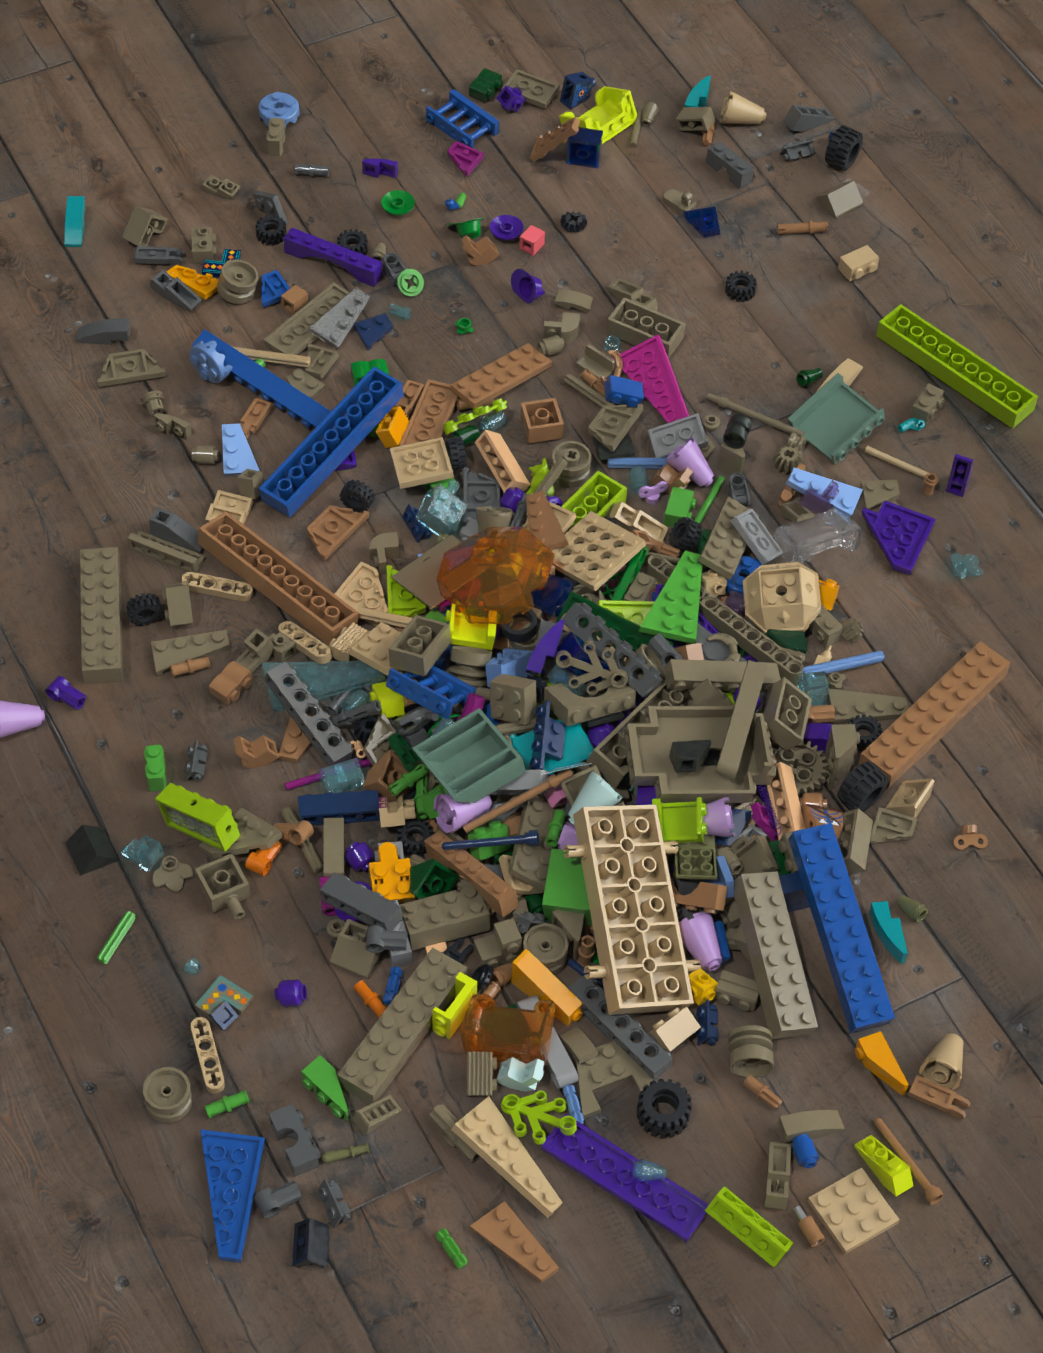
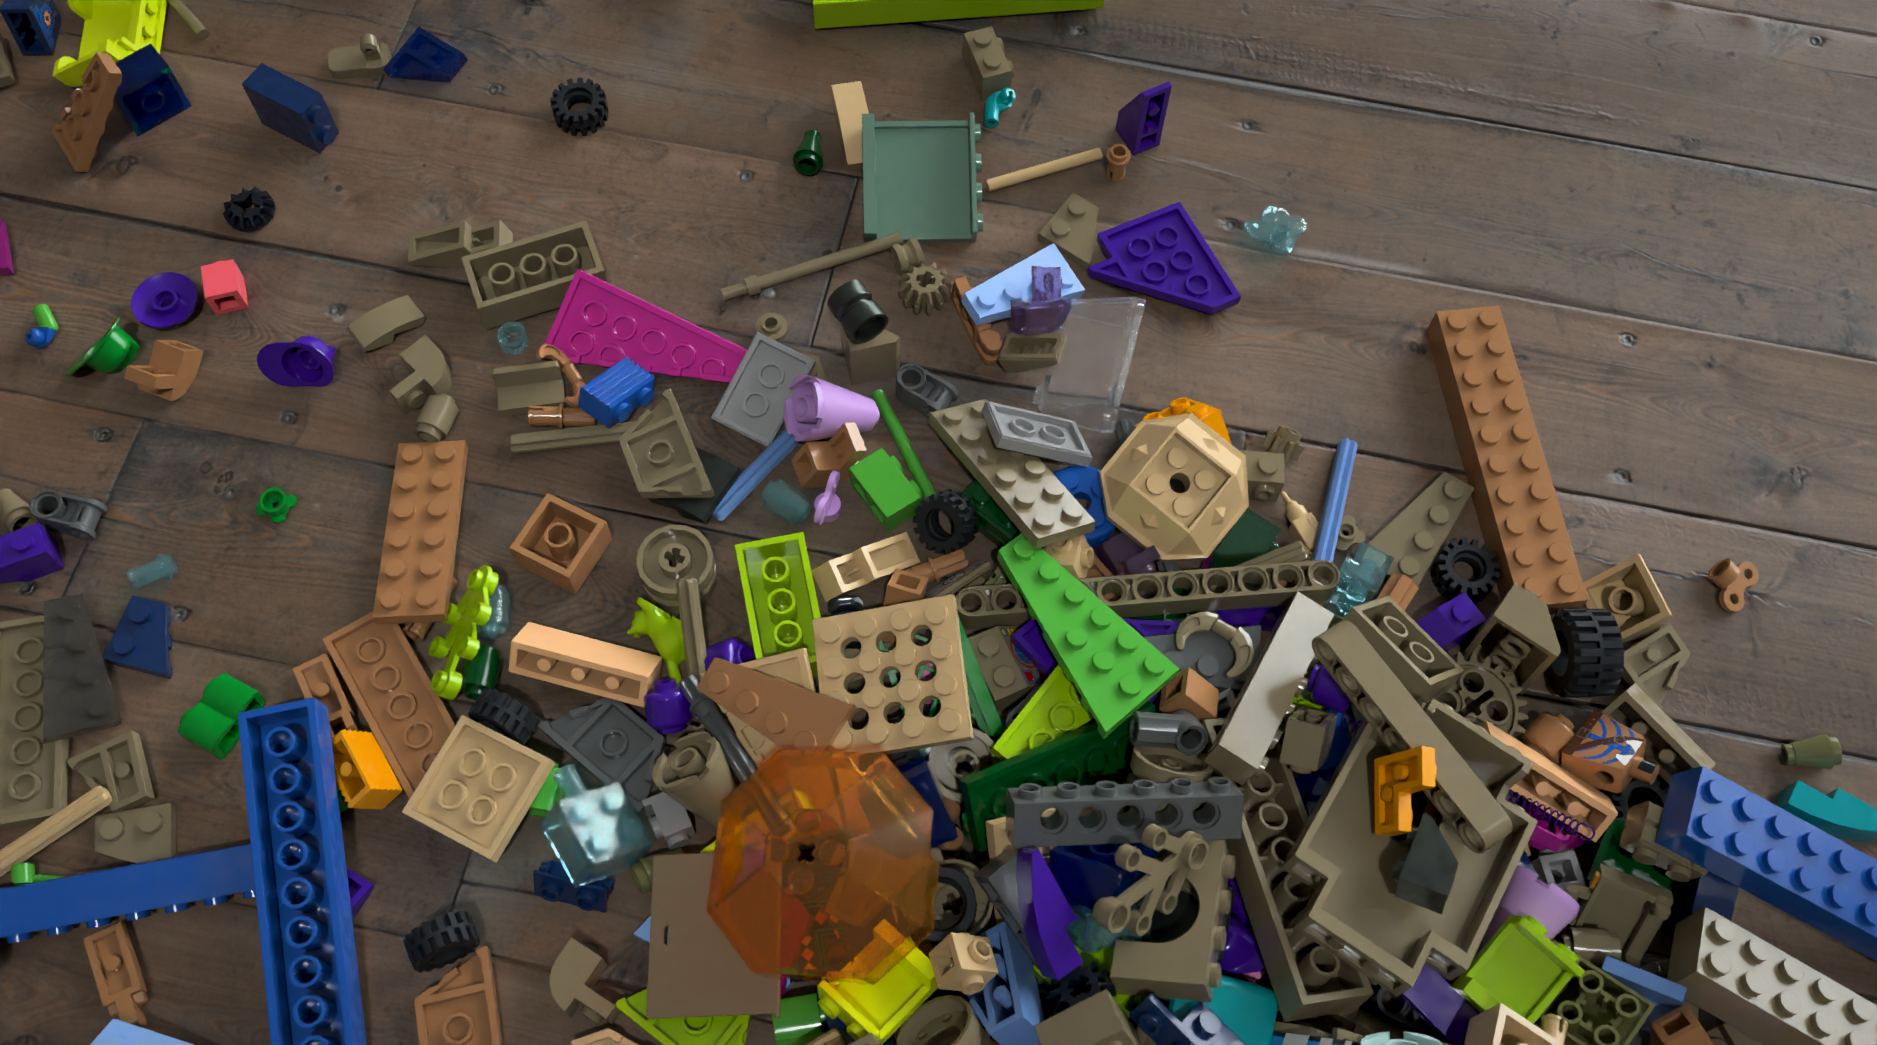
camera: 50 degrees left, 10 degrees up
(417, 280) = (124, 499): bright green gear -> none
(504, 640) = (963, 963): none -> tan brick
(629, 196) = (290, 108): none -> dark blue brick
(717, 726) = (1394, 781): none -> light orange plate

